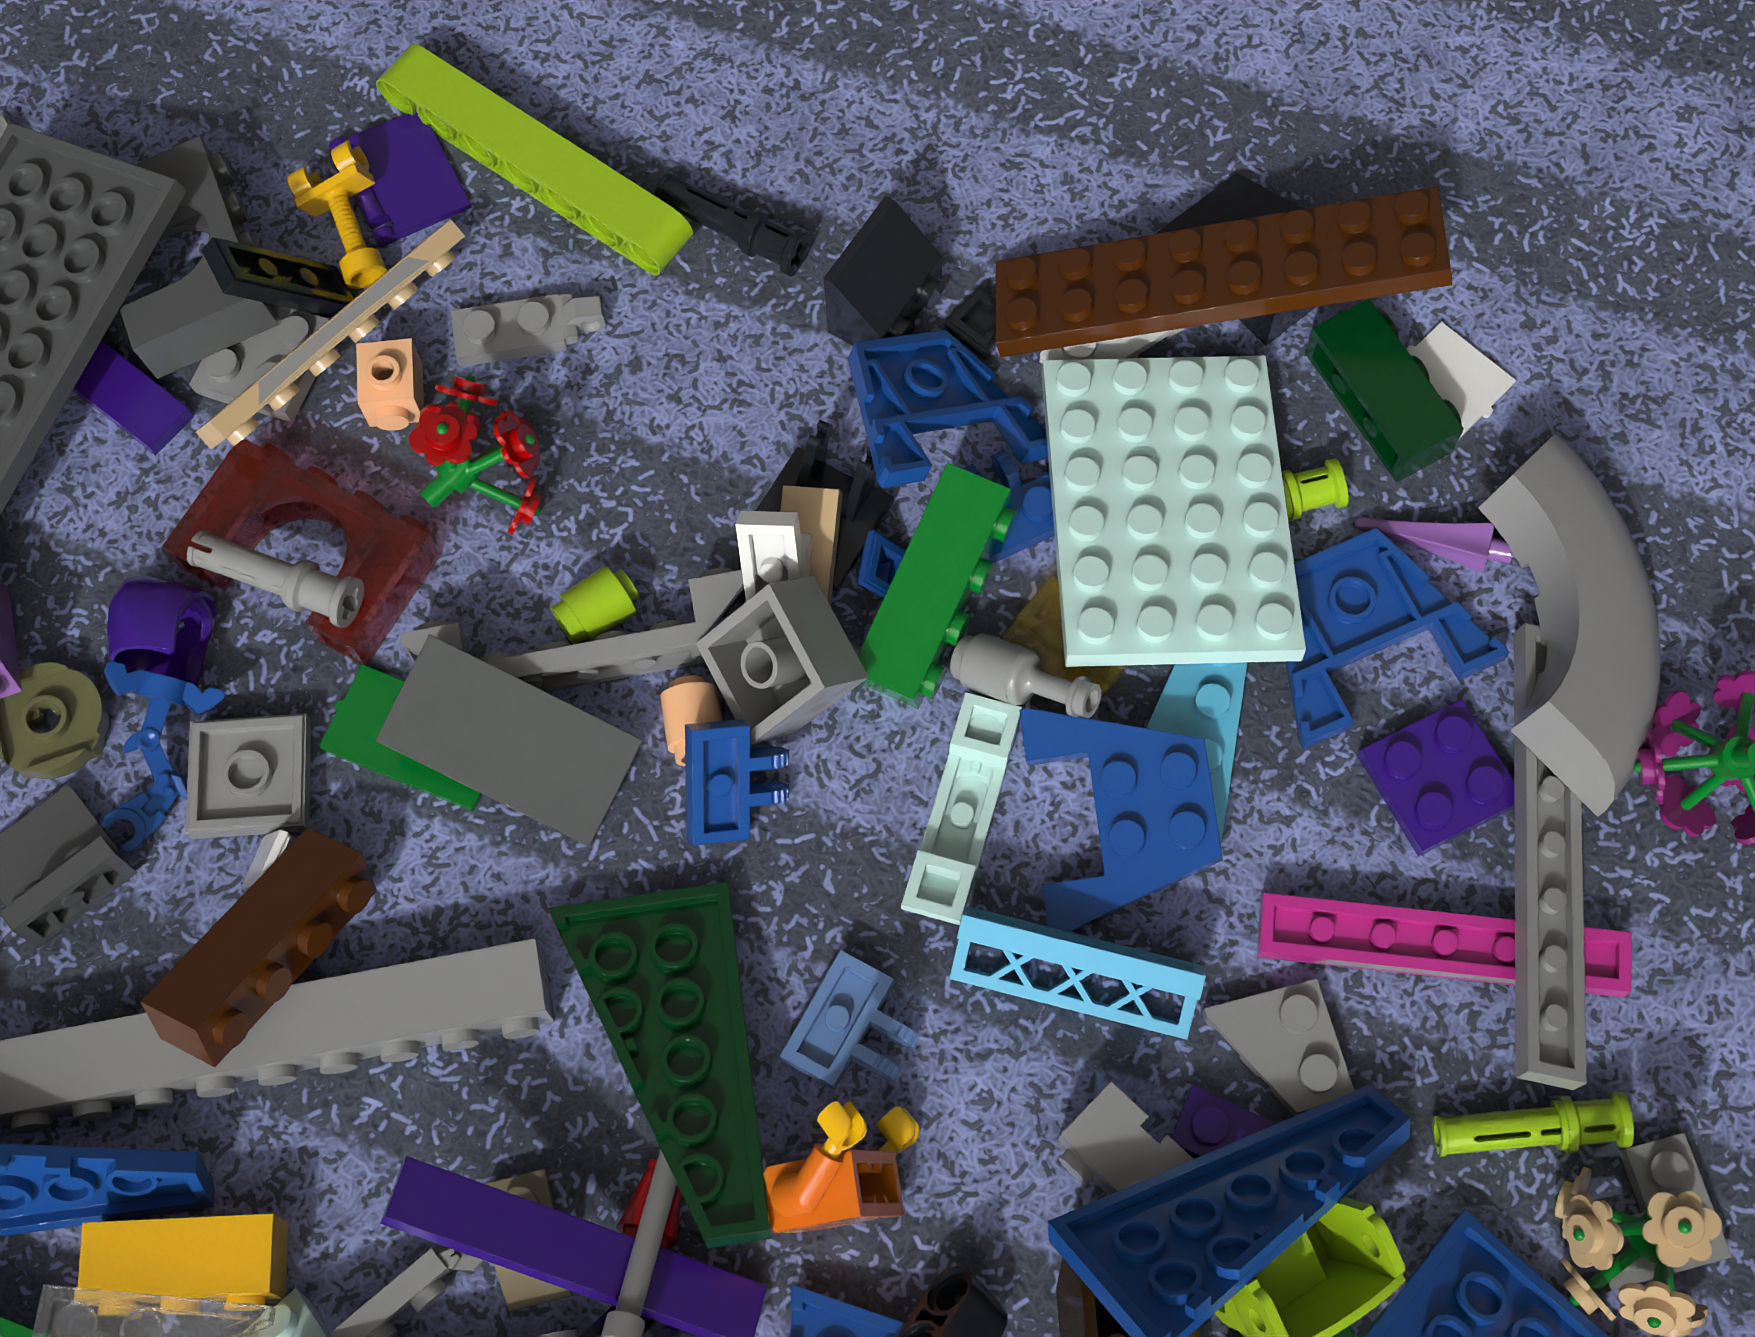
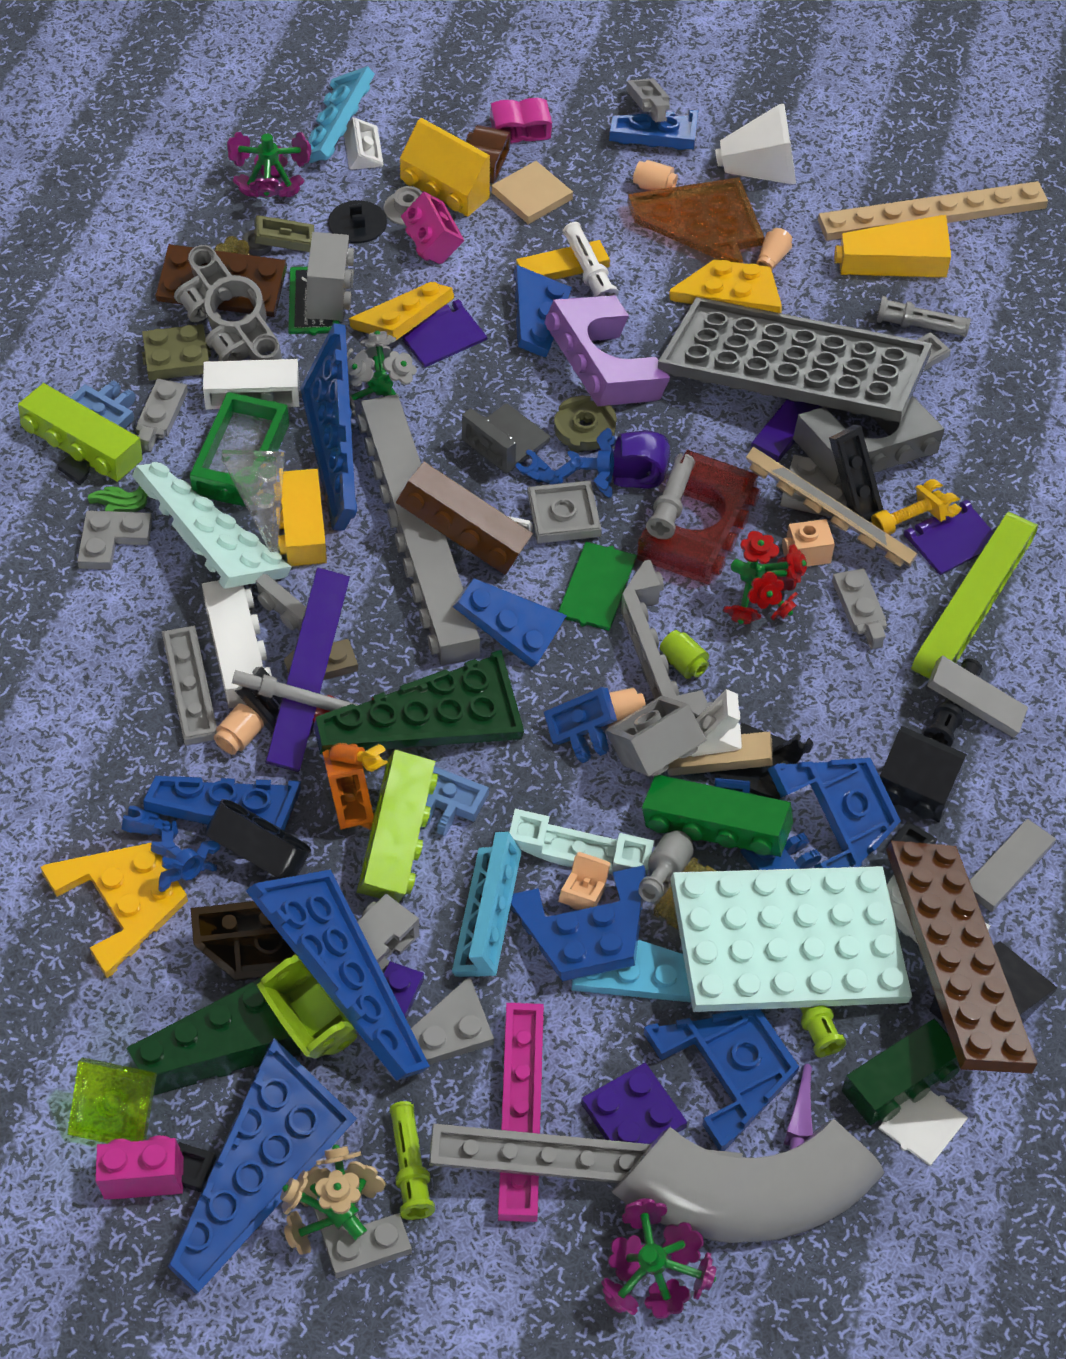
camera: 80 degrees right, 15 degrees down
(494, 885) = (510, 619): none -> blue wing
(509, 740) = (594, 618): dark grey tile -> none
(734, 184) = (977, 696): none -> light grey tile
(931, 1108) = (397, 825): none -> lime brick
(1026, 194) = (1010, 864): none -> light grey tile
(1040, 809) = (585, 882): none -> light nougat bracket

